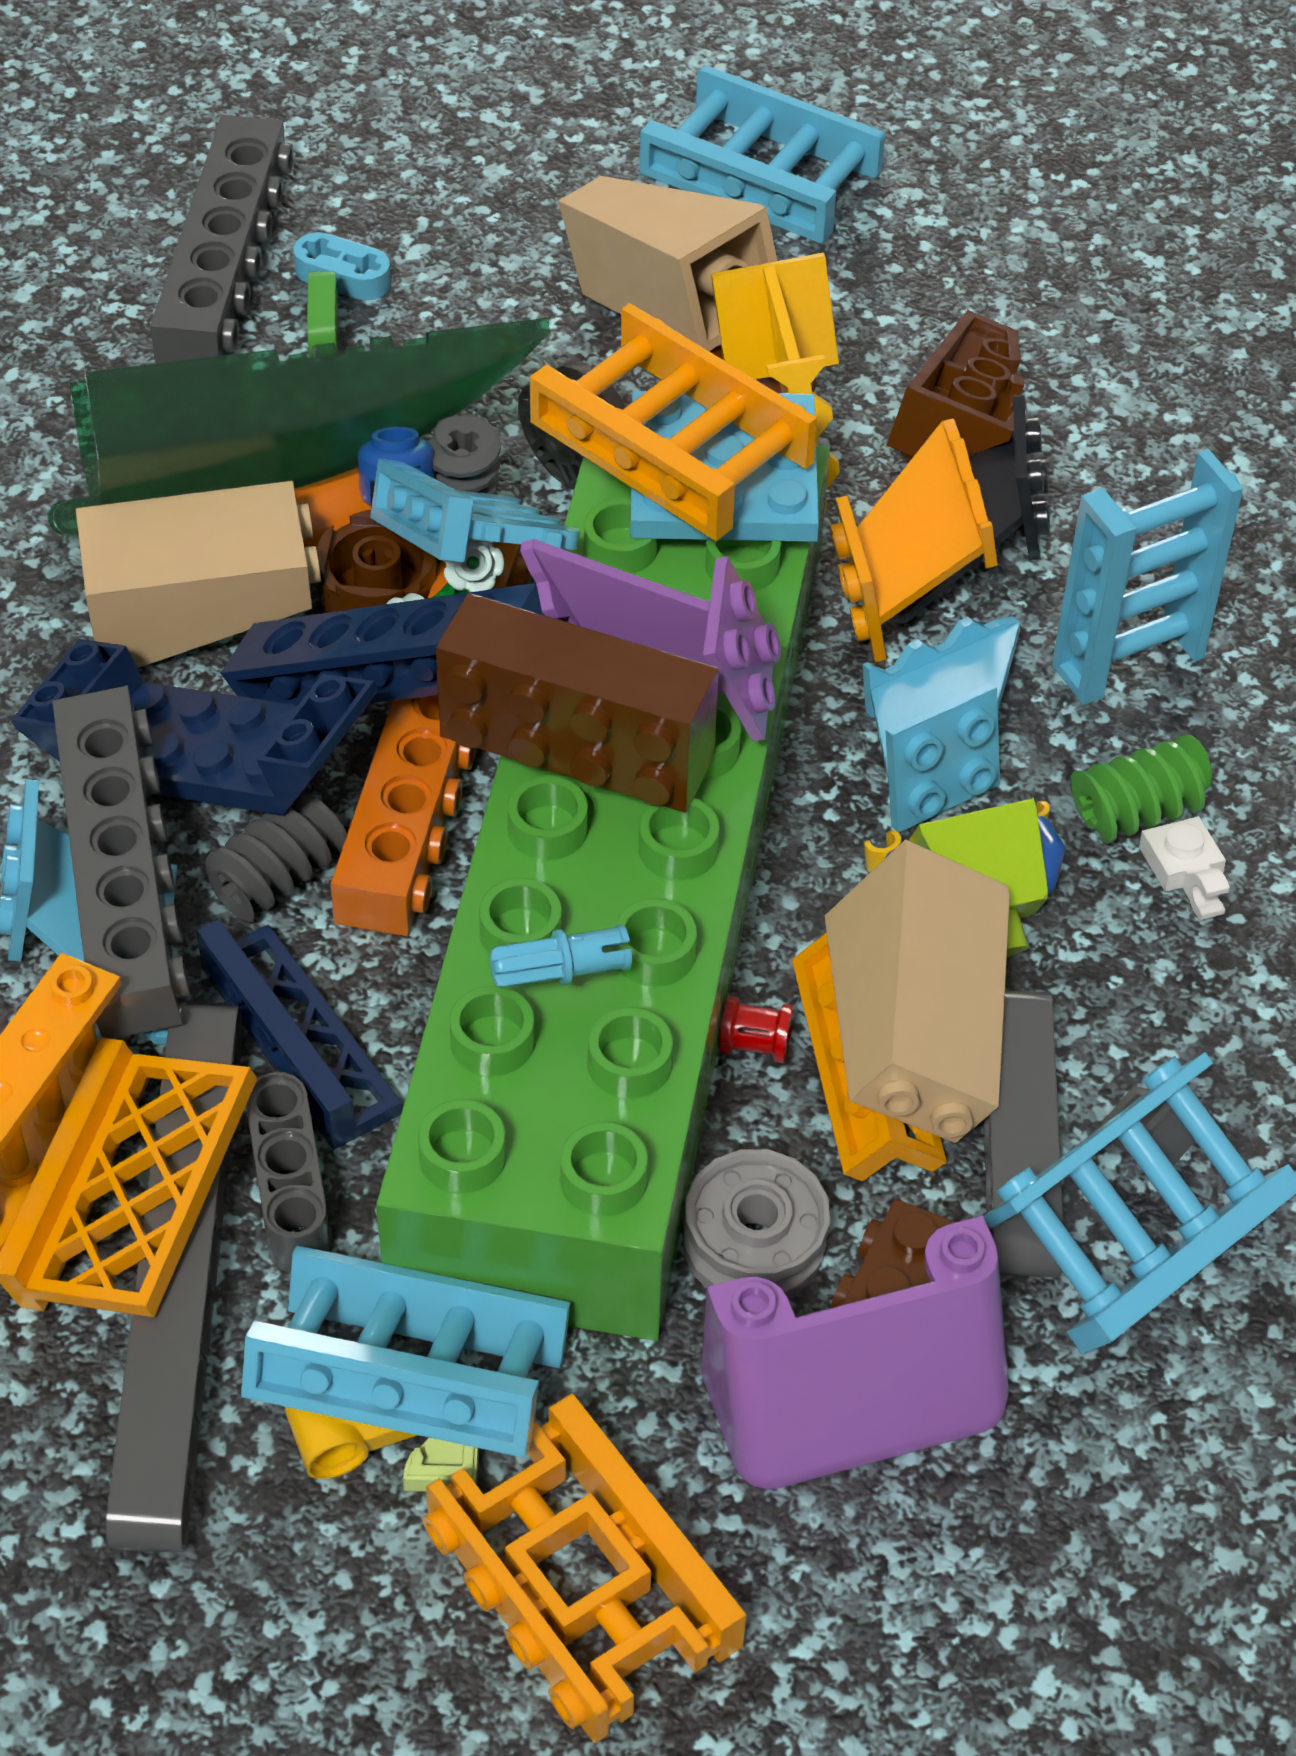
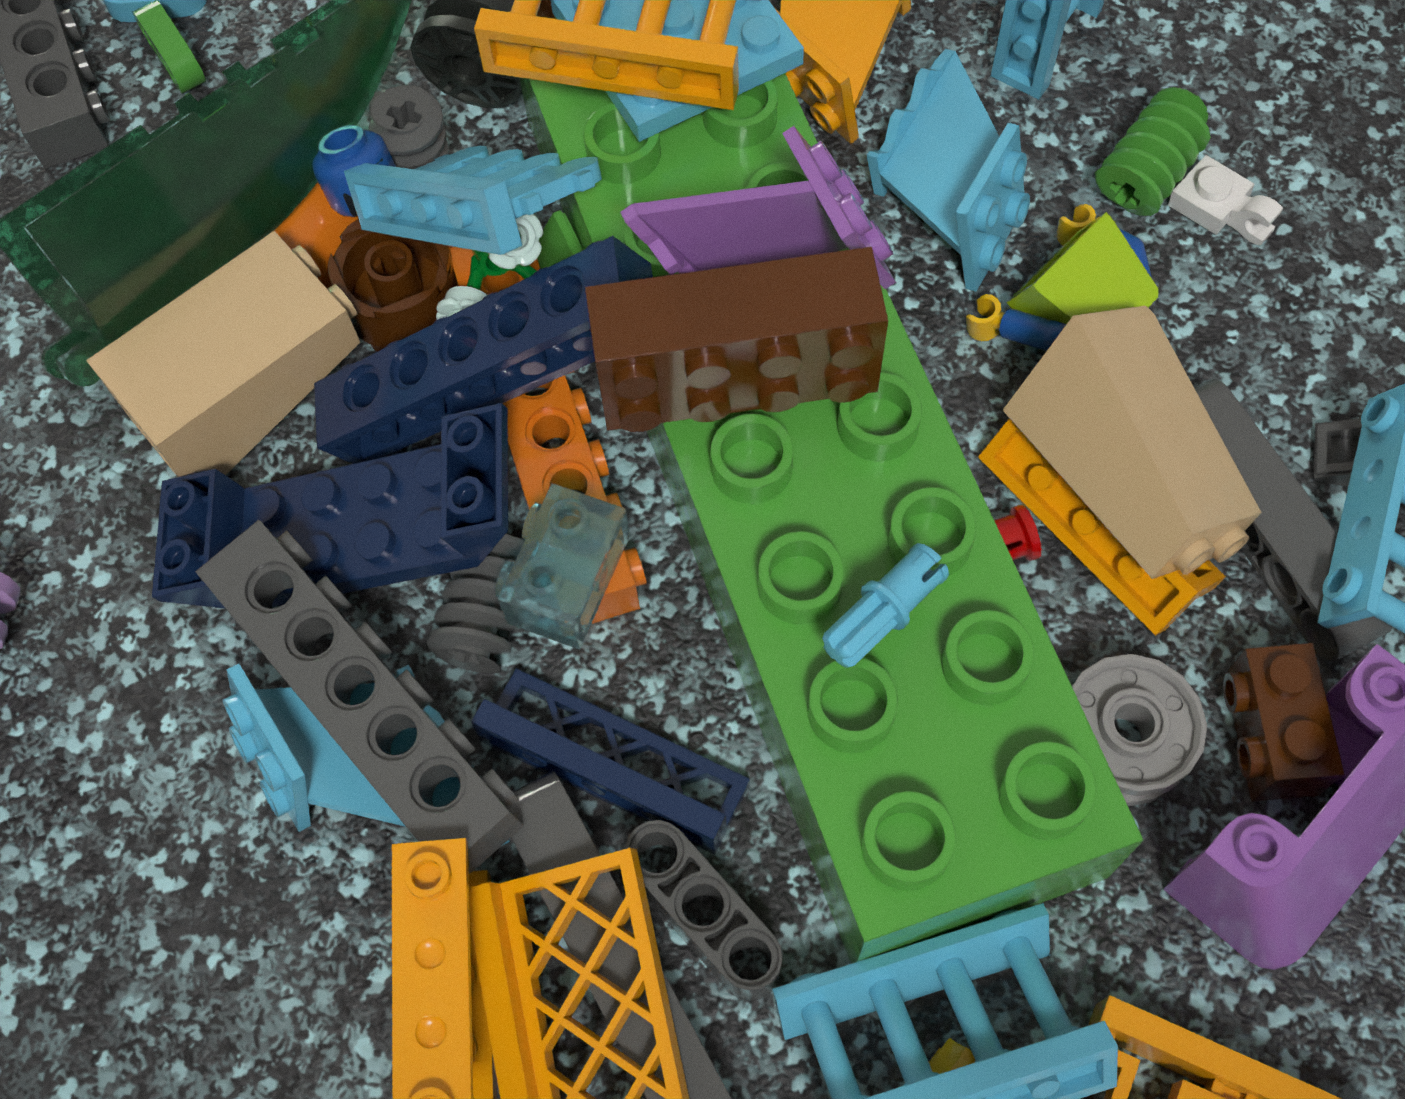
camera: 25 degrees left, 15 degrees up
(351, 845) = (563, 565): none -> clear light blue brick

